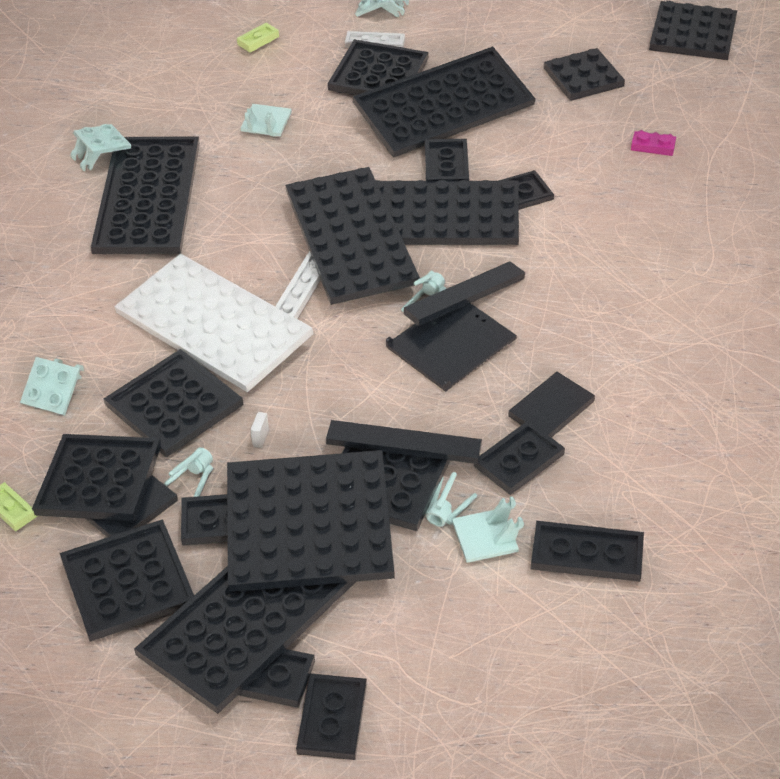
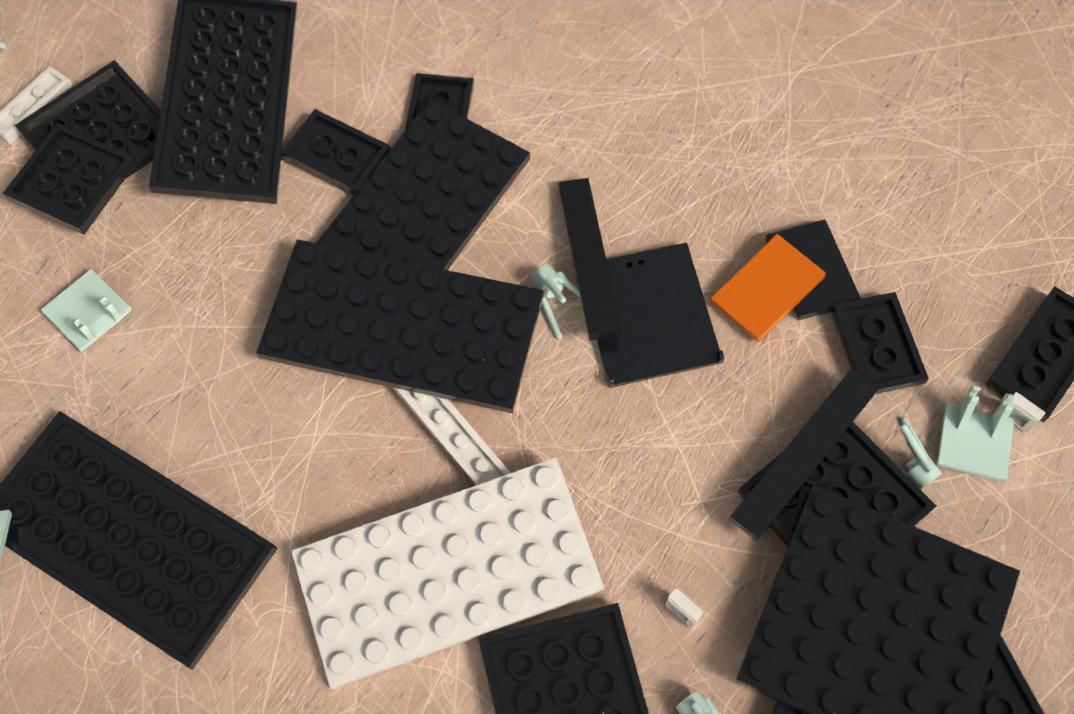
camera: 60 degrees left, 20 degrees up
(336, 70) = (70, 178): none -> black plate
(514, 385) = (767, 287): none -> orange tile
(524, 548) = (1025, 413): none -> white tile

